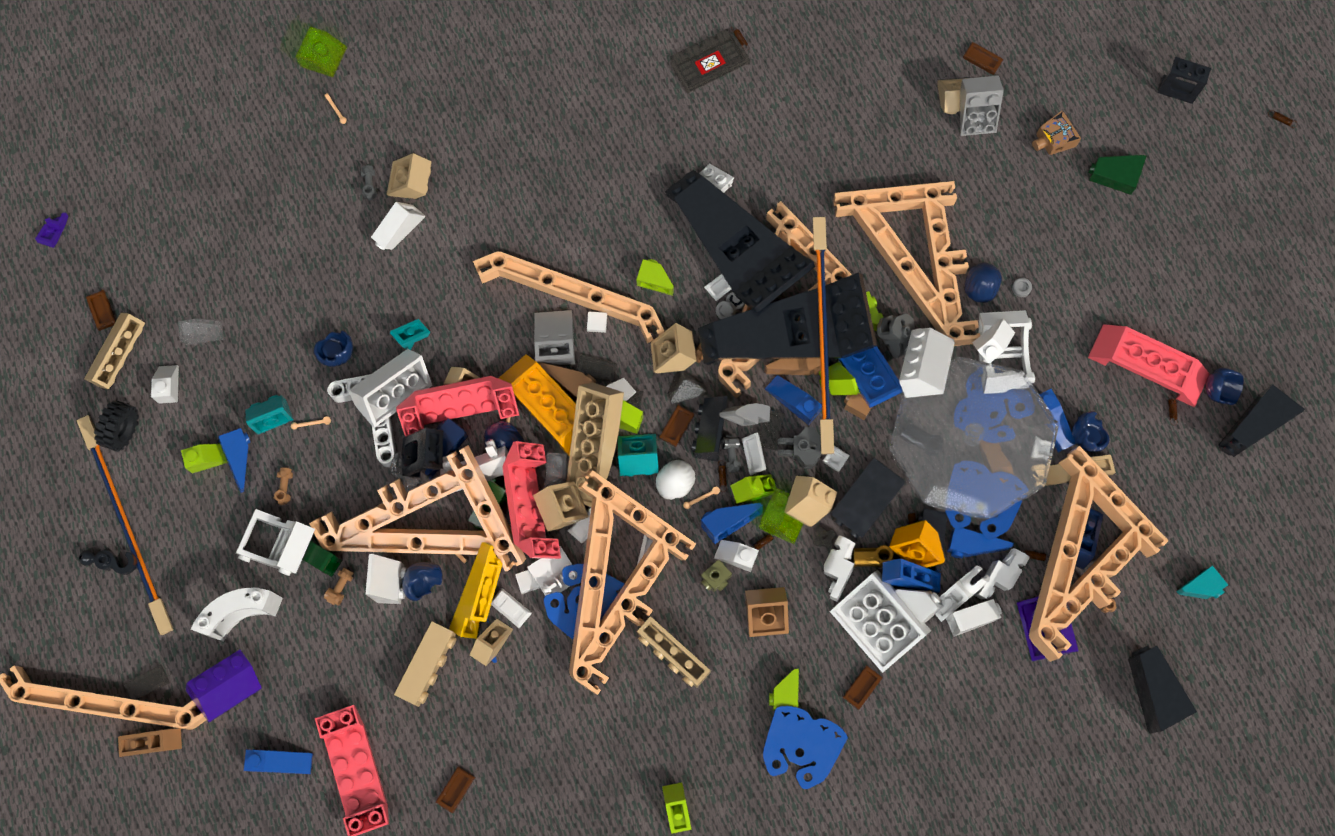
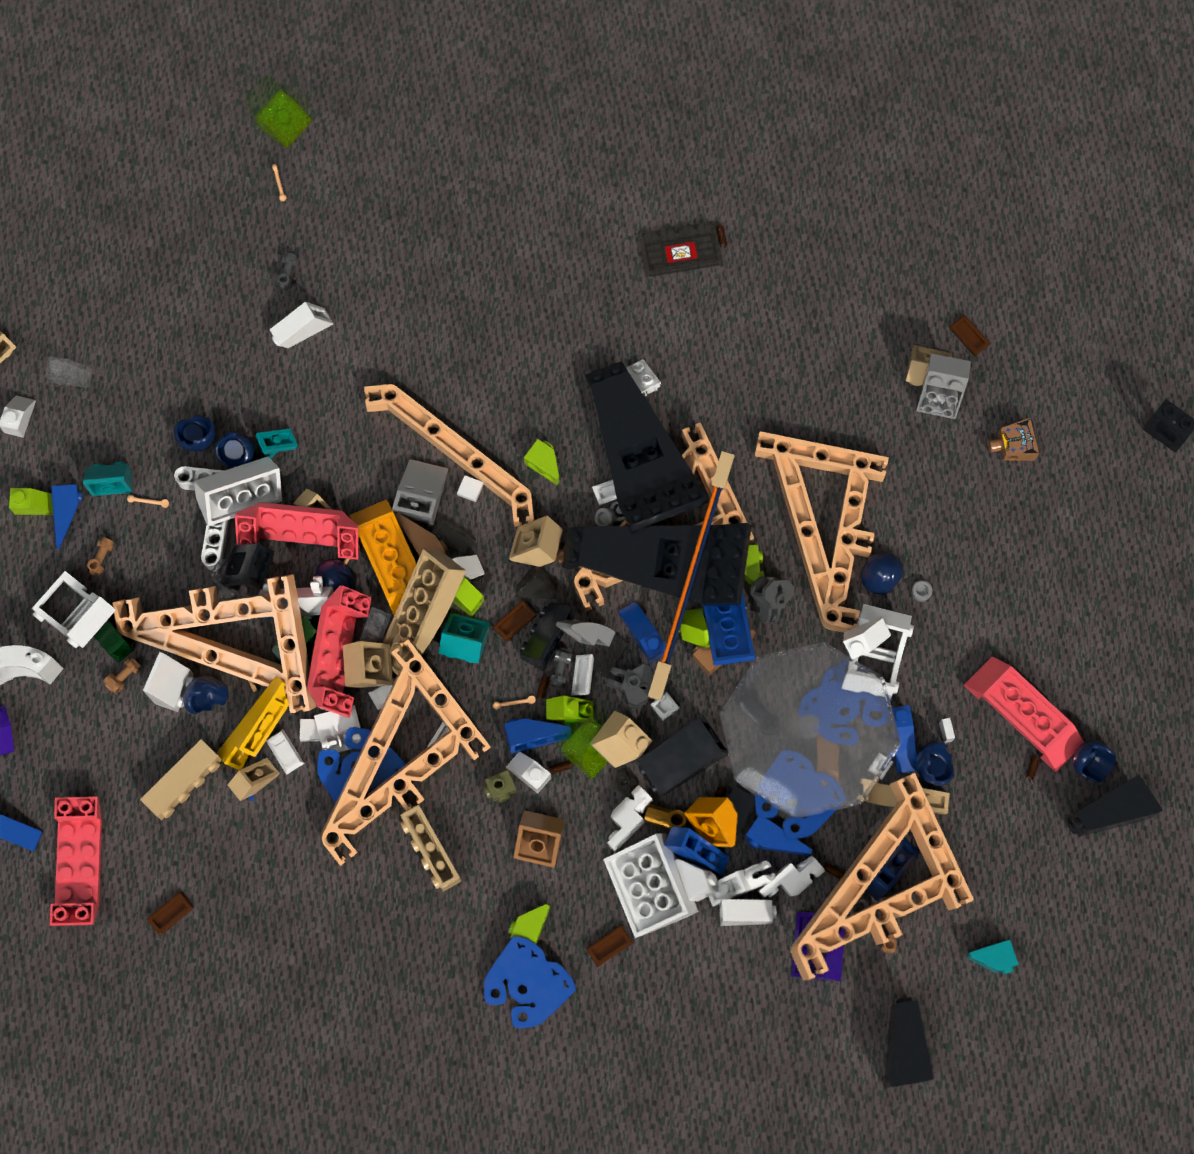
camera: 15 degrees right, 0 degrees up
(374, 352) = (235, 449): none -> dark blue piece
(409, 177) = (330, 278): tan slope -> none
(452, 439) = (283, 562): dark blue slope -> none
(675, 479) = (493, 675): white piece -> none
(676, 808) = (380, 1003): lime slope -> none
(794, 367) = (653, 598): medium nougat slope -> none
(926, 363) = (787, 637): white slope -> none
(1089, 400) = (947, 730): none -> white tile
(1118, 172) = (1066, 501): dark green slope -> none

